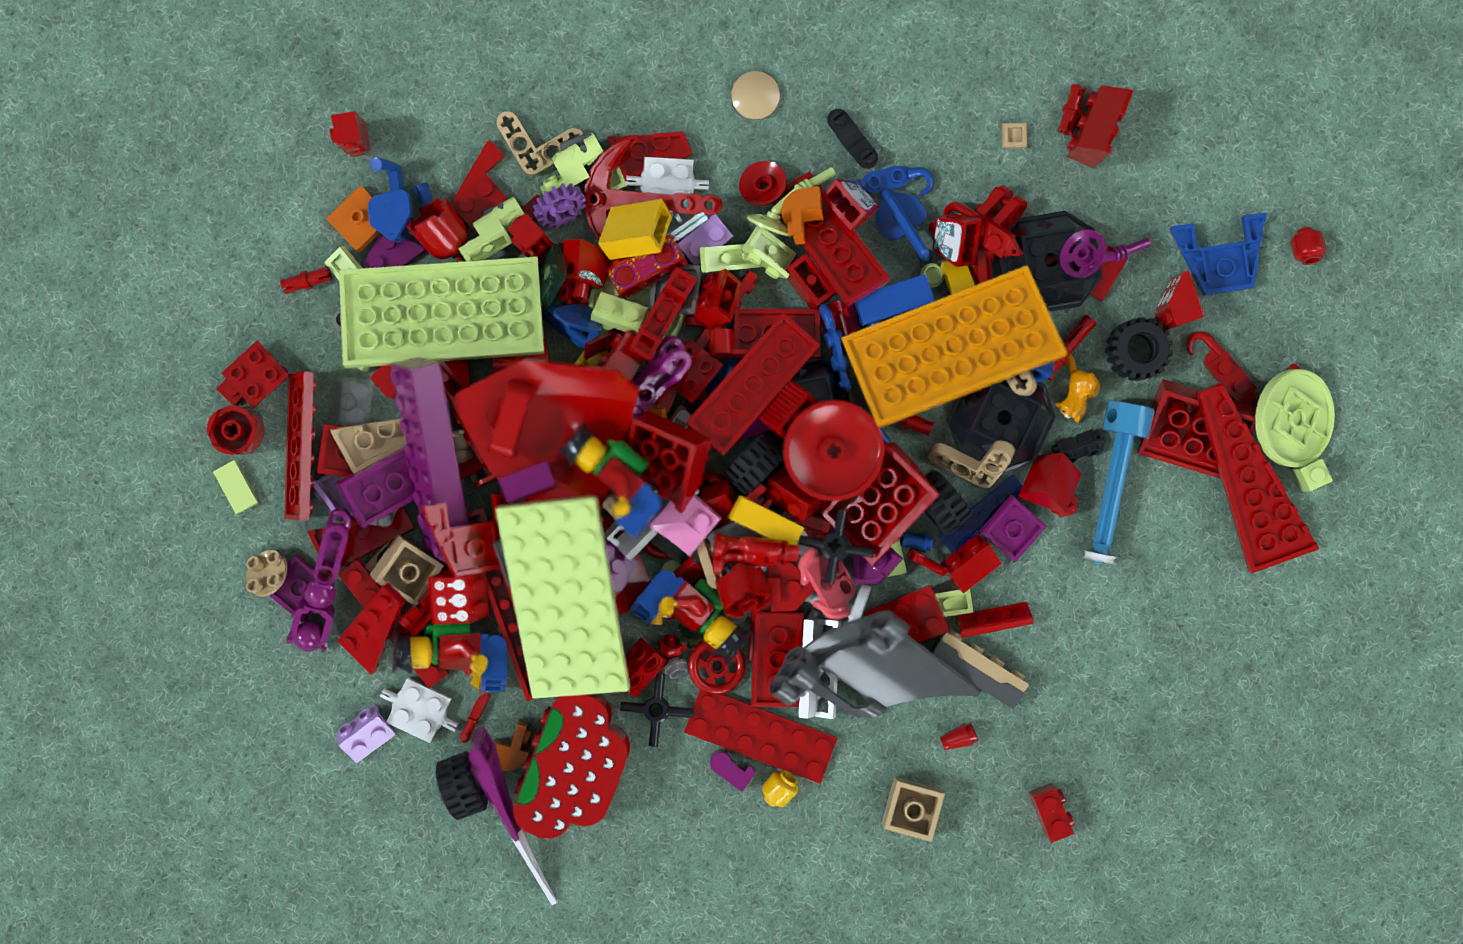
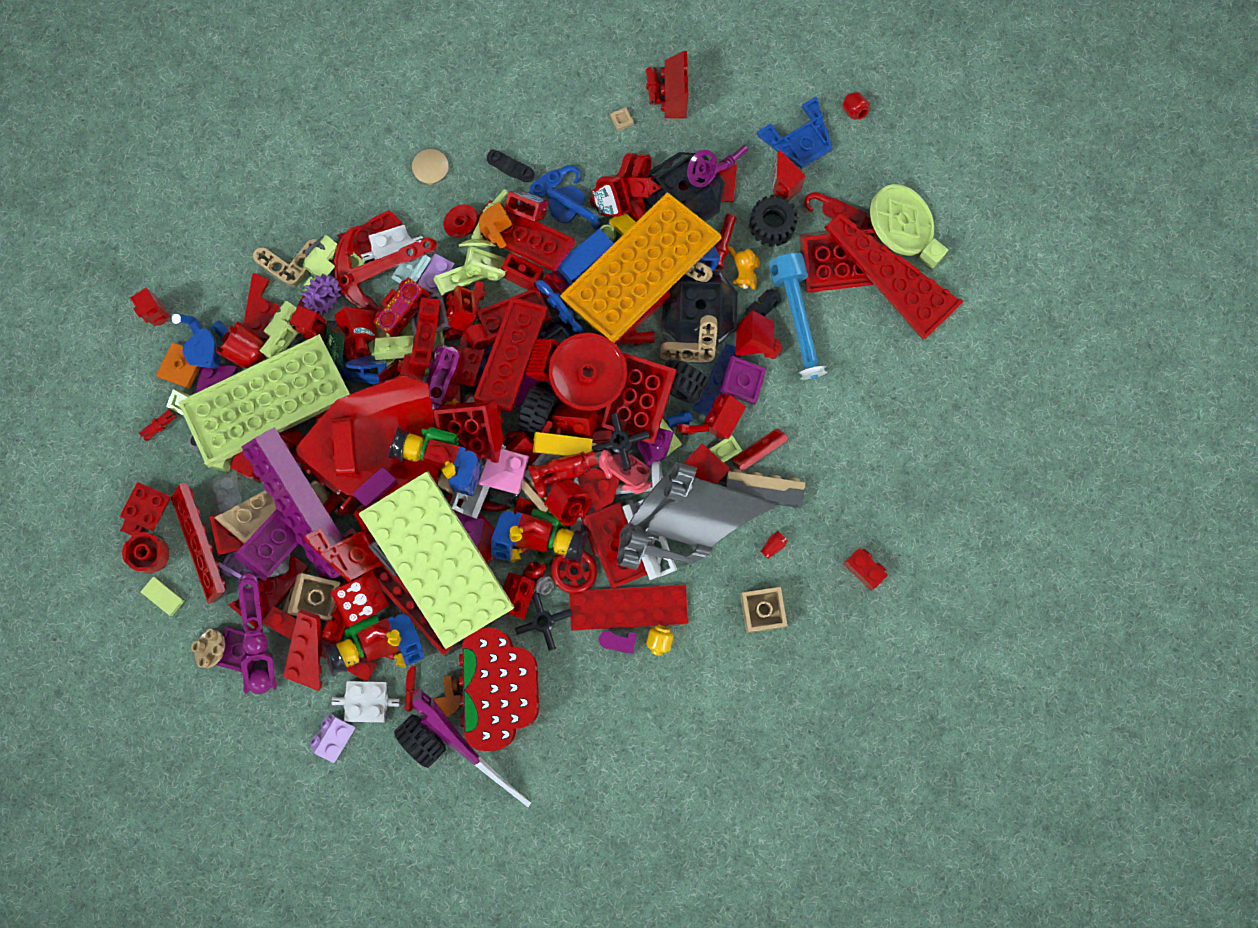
camera: 30 degrees left, 10 degrees down
(635, 229) = (382, 285): yellow brick -> none

